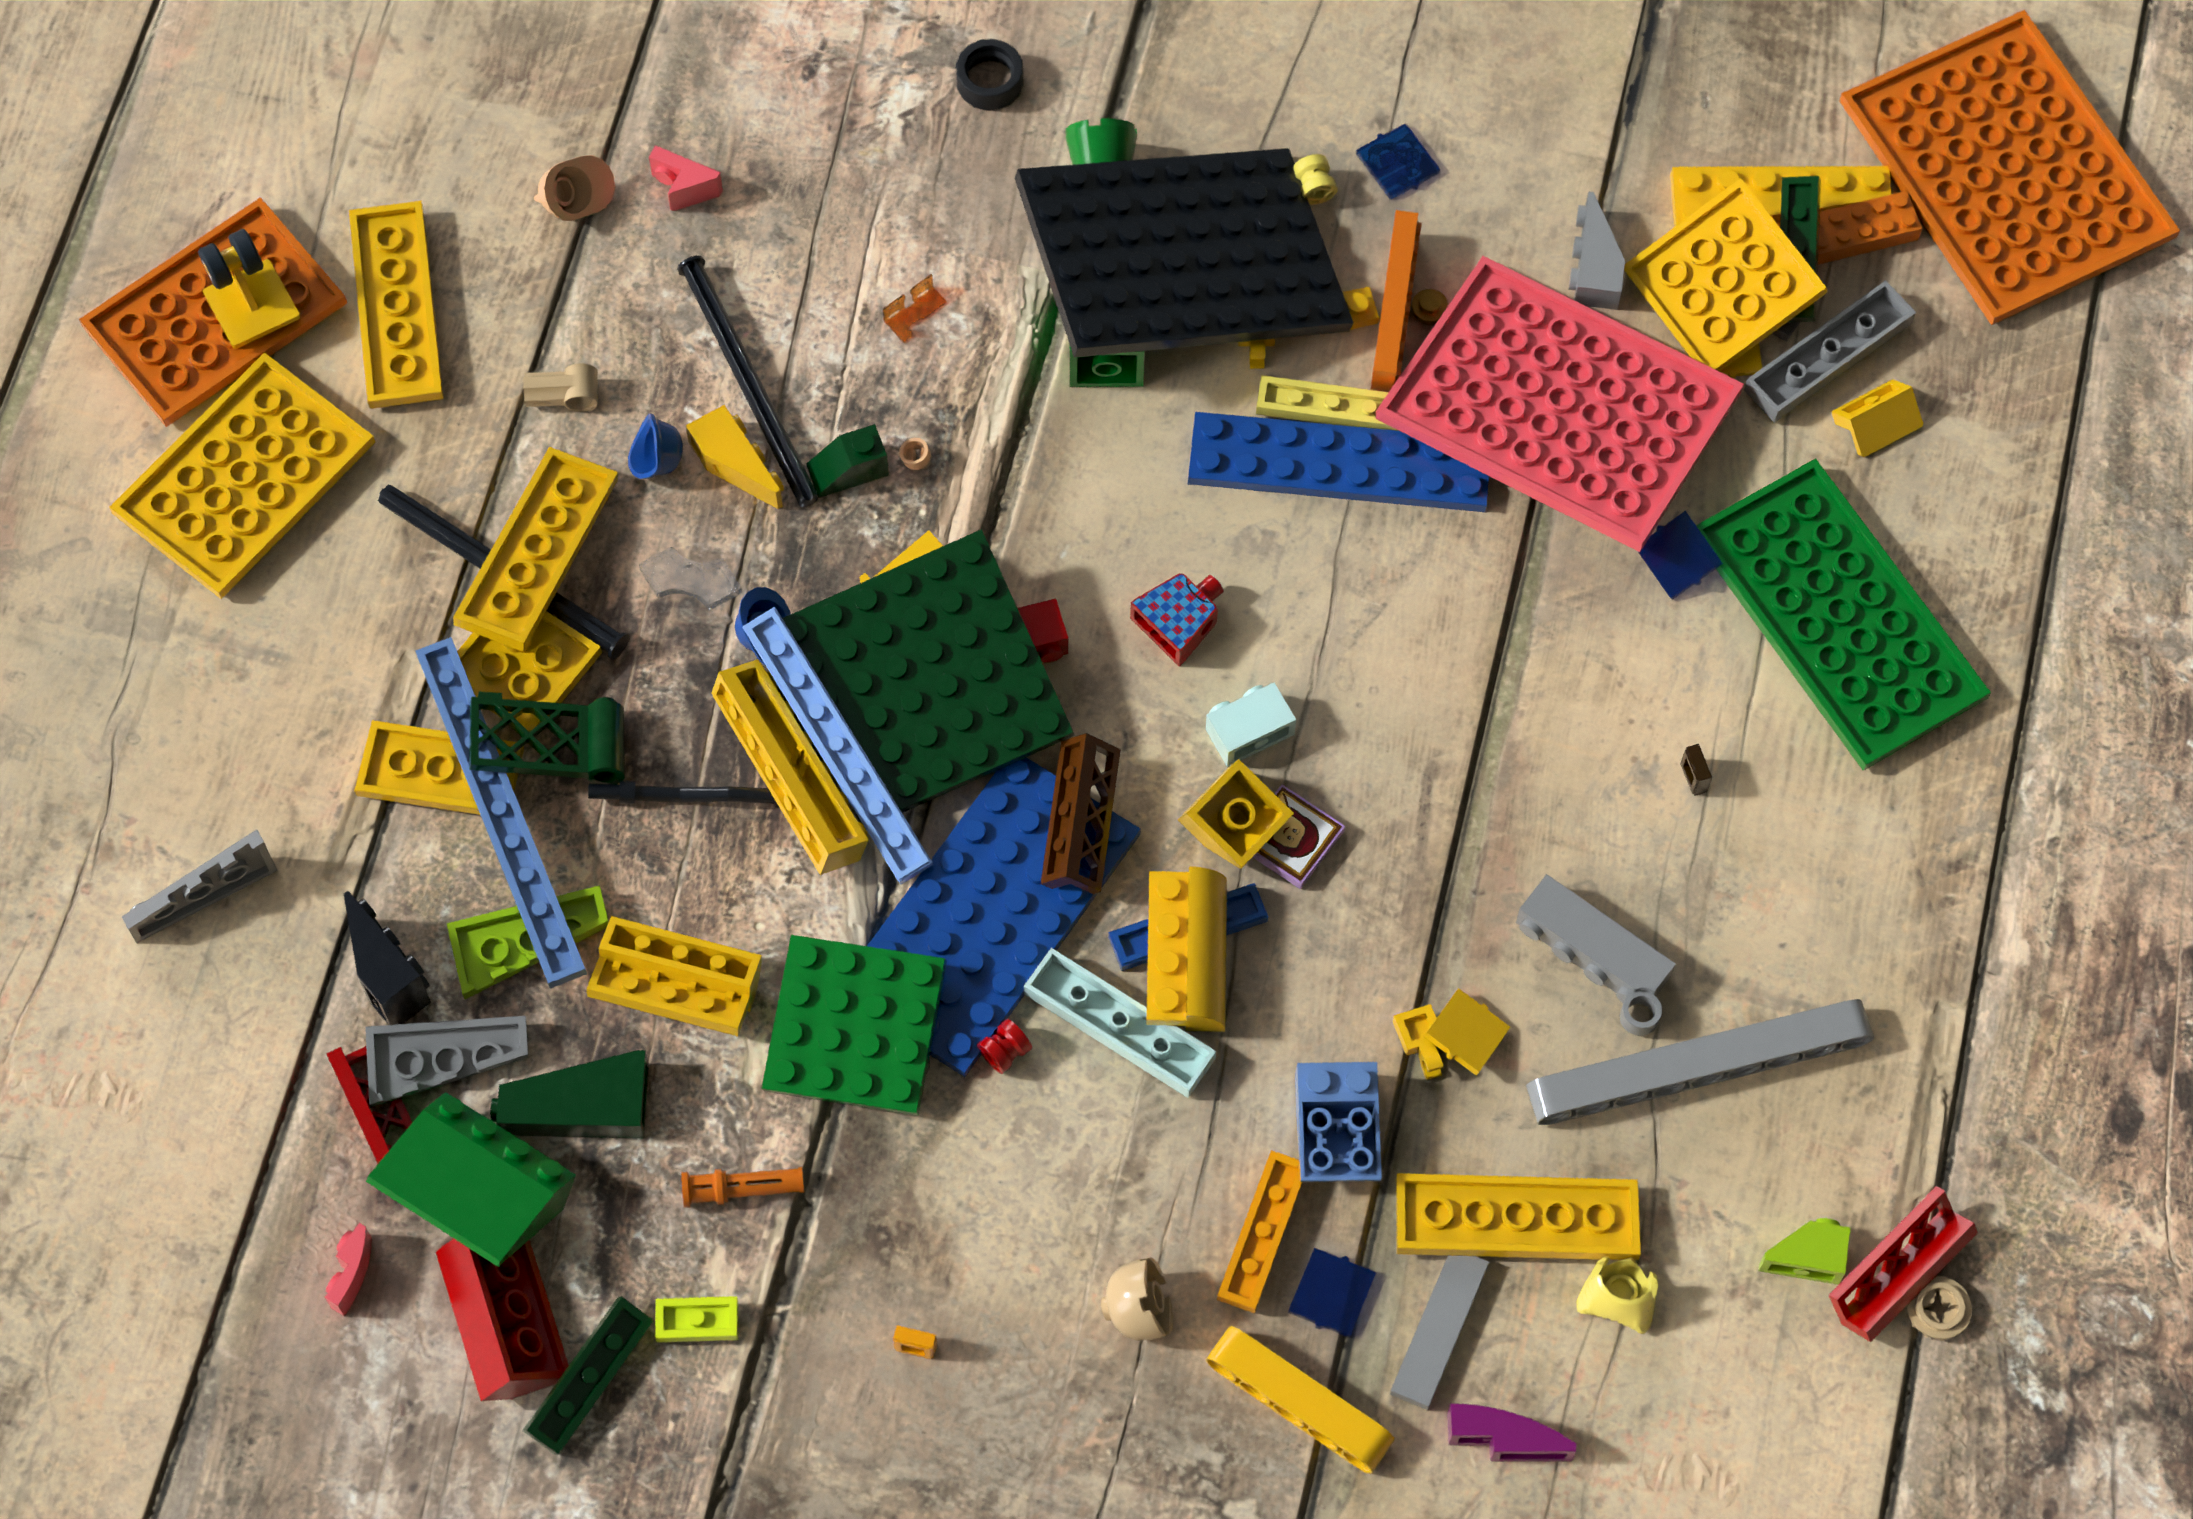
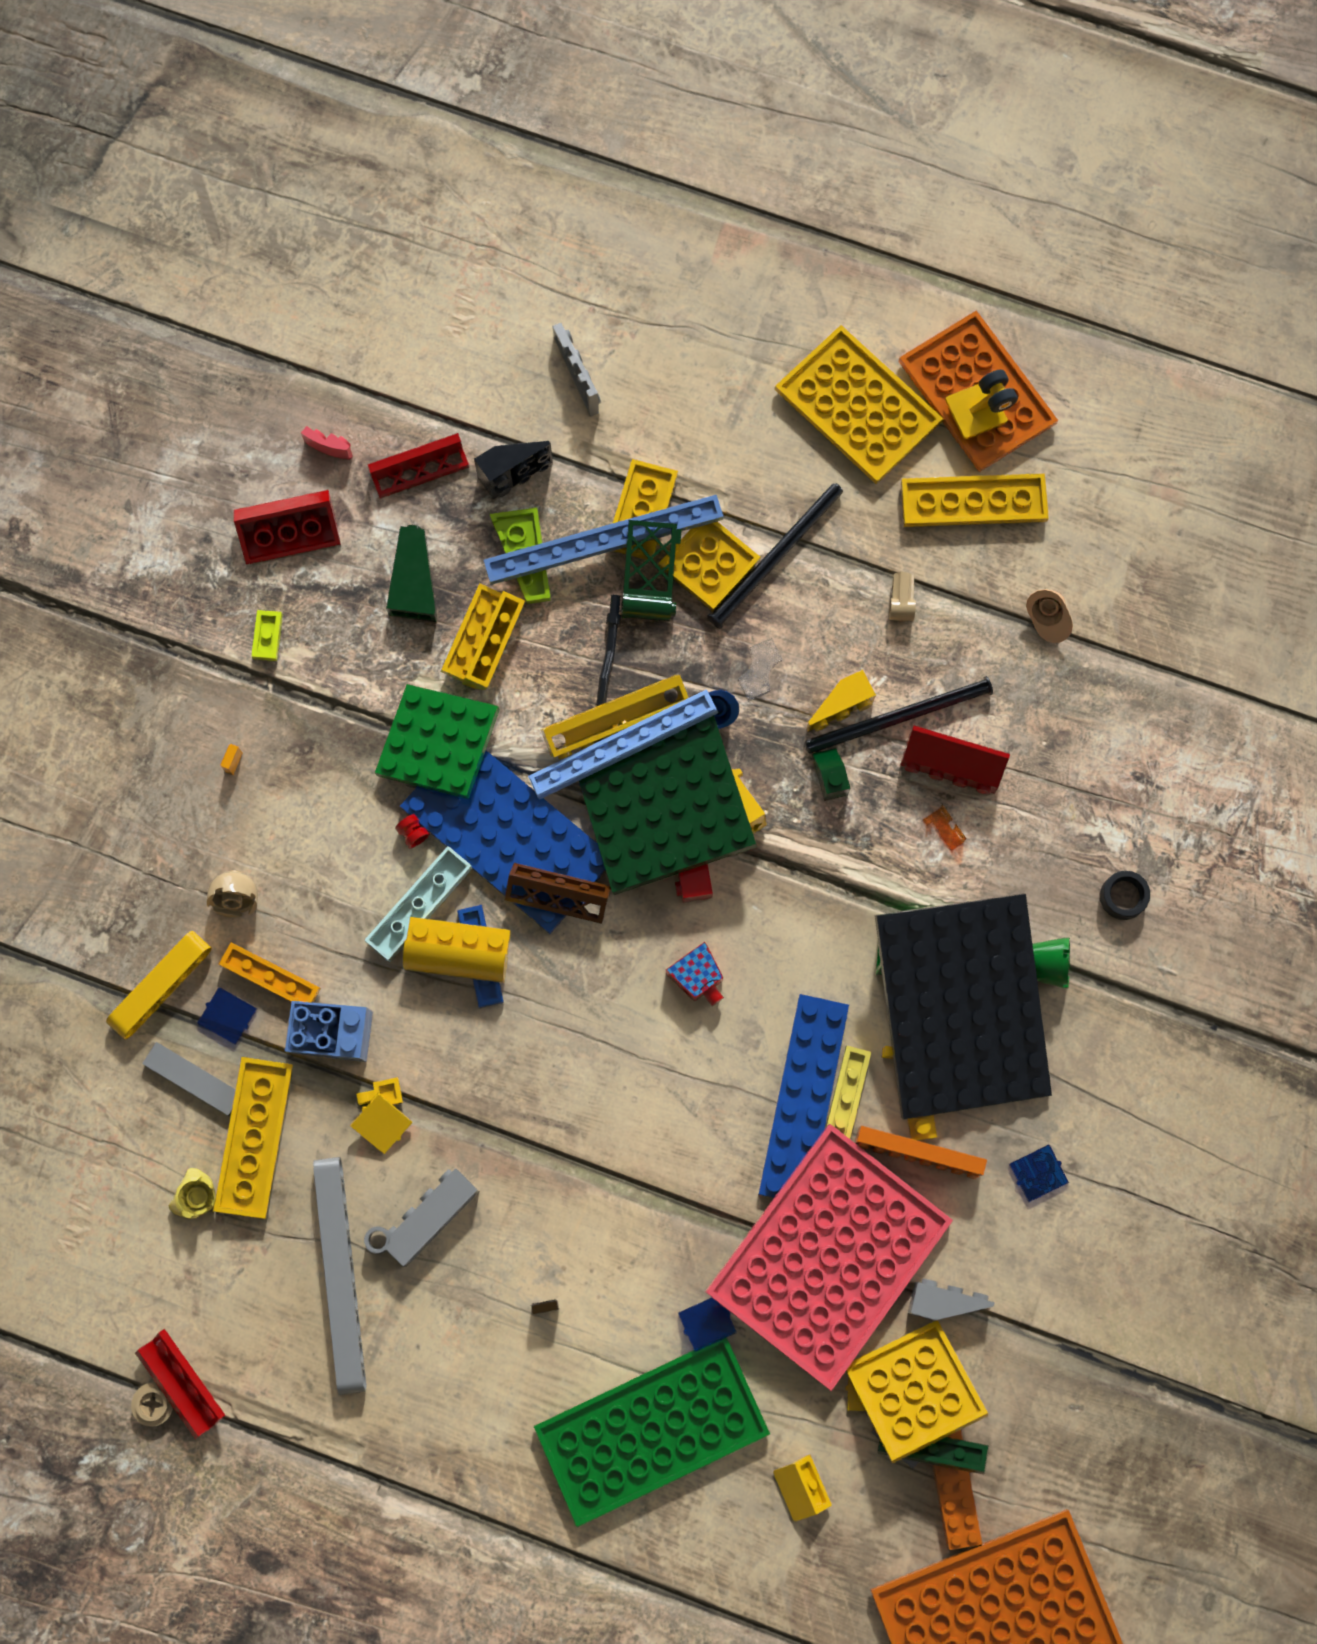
camera: 95 degrees right, 10 degrees up
(431, 1054) = (453, 491): light grey wing -> none
(473, 1179) = (362, 508): green slope -> none
(535, 549) = (784, 572): yellow plate -> none
(588, 1375) = (242, 571): dark green plate -> none
(655, 449) = (850, 652): blue helmet -> none
(690, 180) = (1050, 688): coral slope -> none
(790, 1182) = (347, 656): orange pin -> none
(815, 297) = (954, 760): none -> red slope
(908, 453) = (833, 813): light nougat hinge -> none
(1236, 815) = (547, 992): yellow slope -> none
(1250, 723) = (614, 1012): light aqua brick -> none
(1301, 841) = (533, 1029): tile -> none
(1315, 178) = (1024, 1110): light yellow wheel -> none
(1429, 306) = (918, 1177): pearl gold plate -> none
(1507, 1434) = (114, 1110): magenta slope -> none
(1811, 1252) = (200, 1324): lime slope -> none
(1829, 351) = (857, 1462): light grey piece -> none
(1839, 185) = (992, 1493): yellow wing -> none

